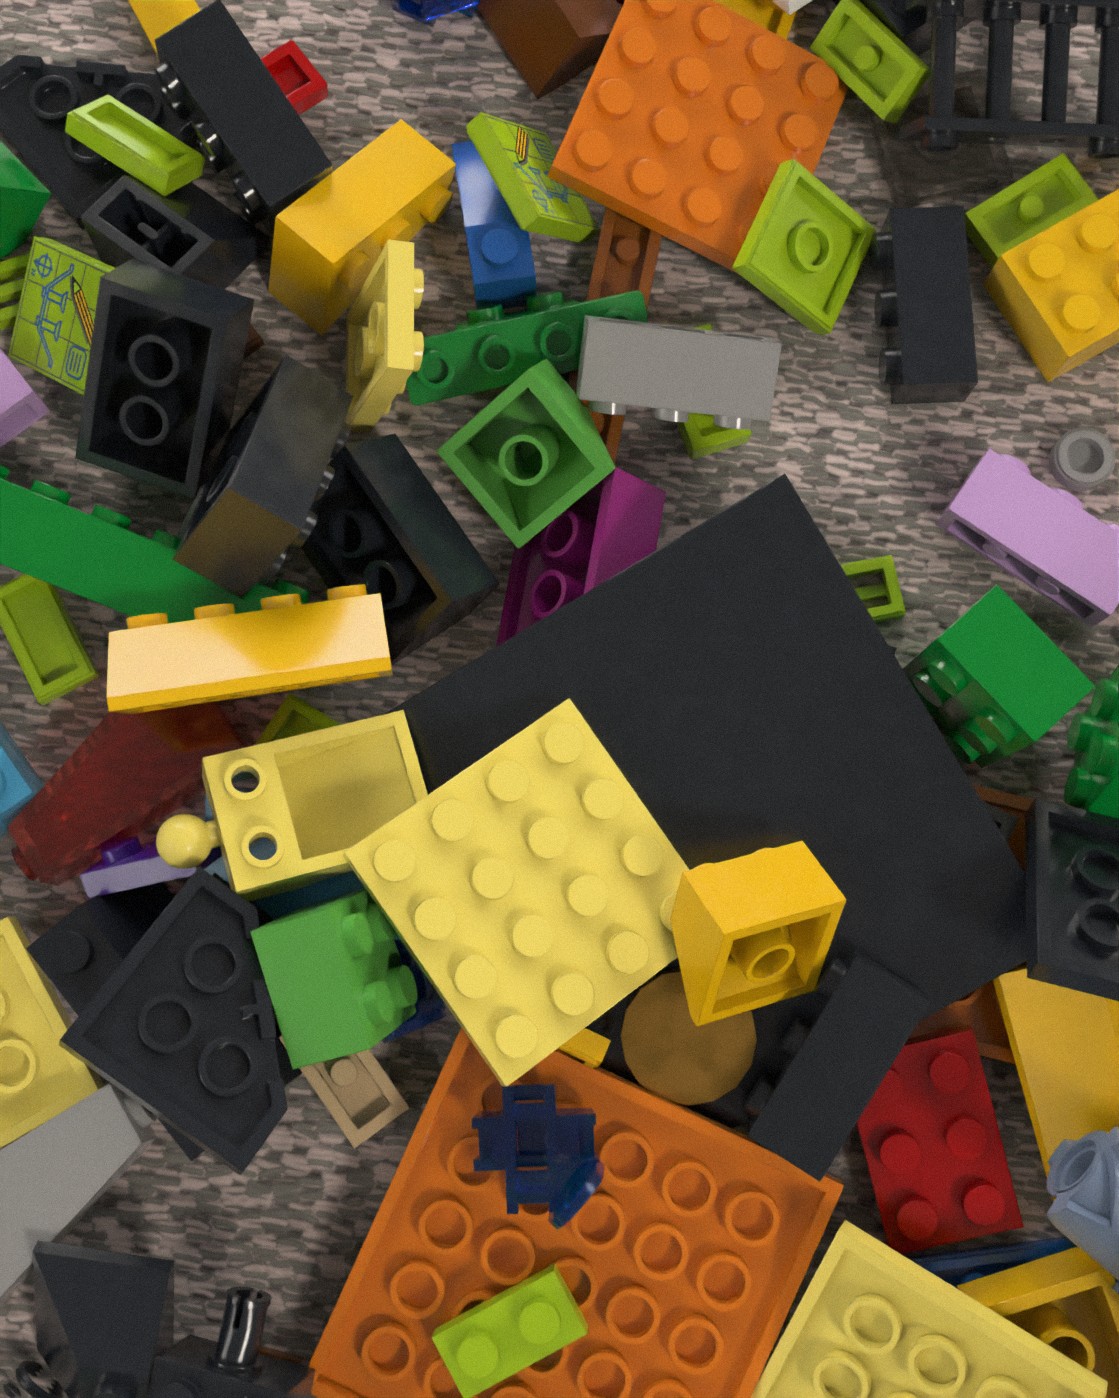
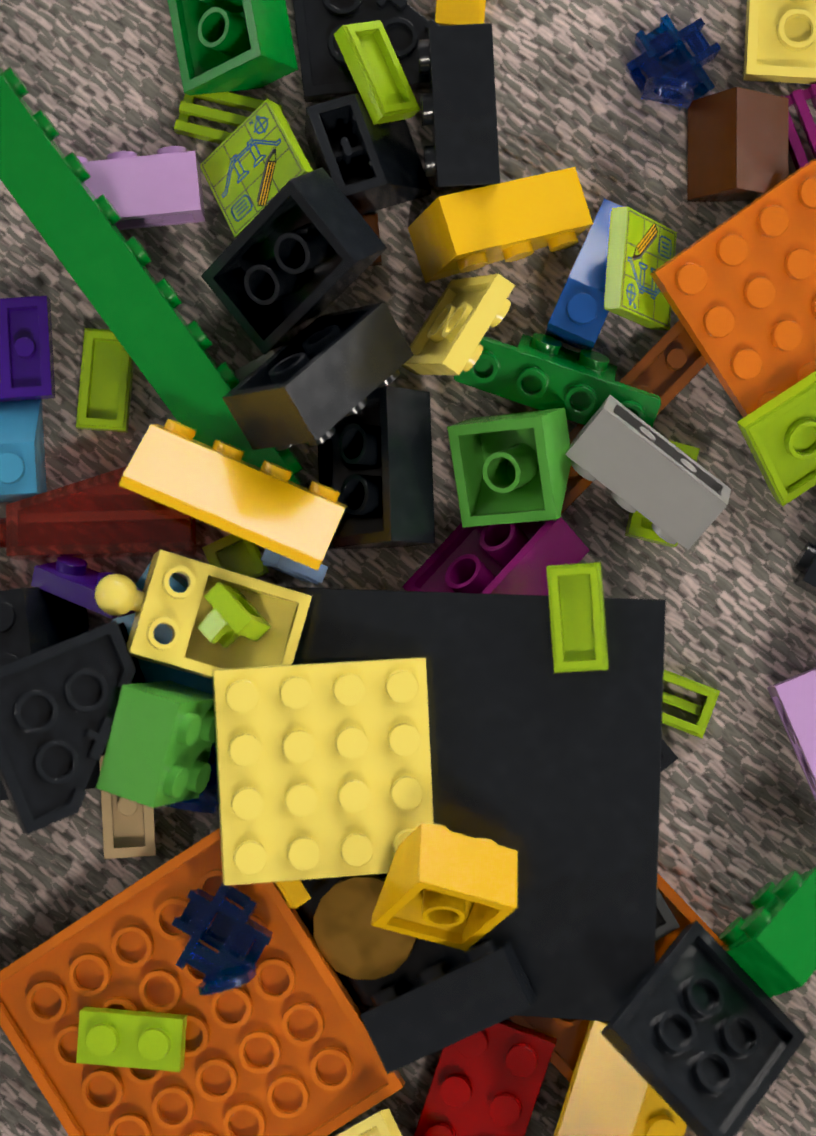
camera: 35 degrees right, 5 degrees up
(296, 76) = (517, 82): red plate -> none
(328, 786) = (231, 617): none -> lime tile
(363, 698) = (293, 568): none -> light blue tile
(704, 549) = (577, 617): none -> lime tile
(995, 681) = (717, 825): green brick -> none

